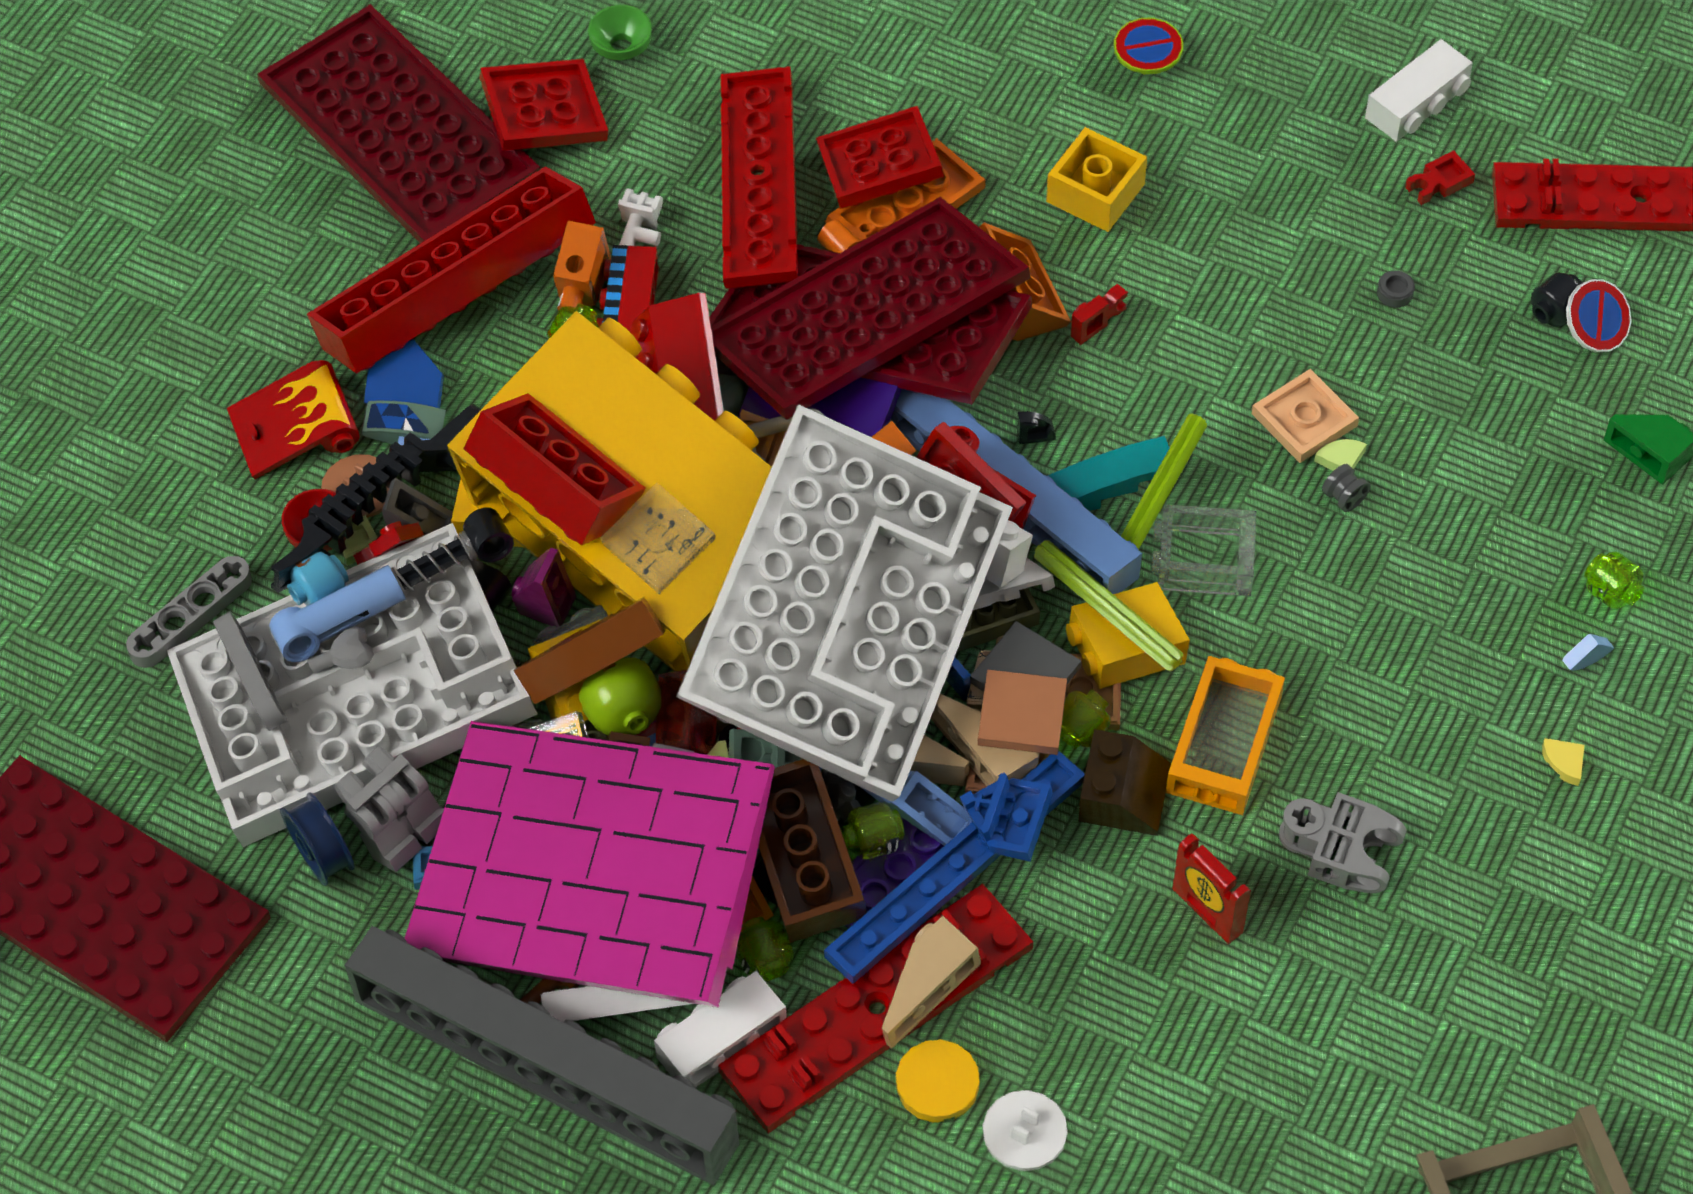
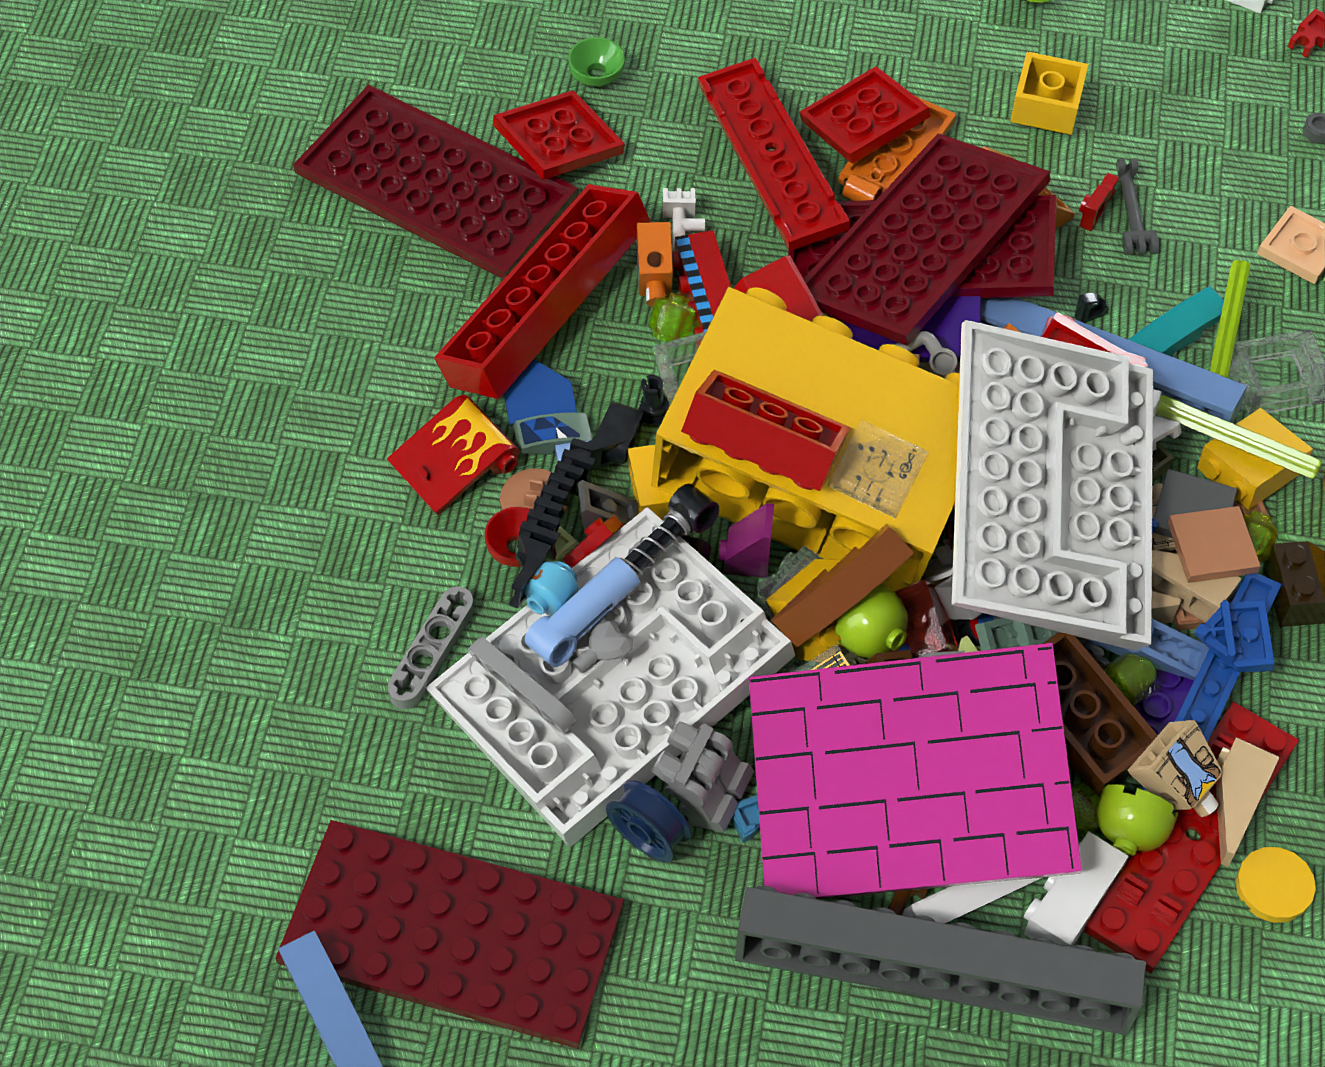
camera: 20 degrees left, 0 degrees up
(806, 973) = (1134, 821): none -> lime cylinder
(866, 932) = (1180, 768): none -> tan torso
(1128, 362) = (1137, 234): none -> dark grey hinge

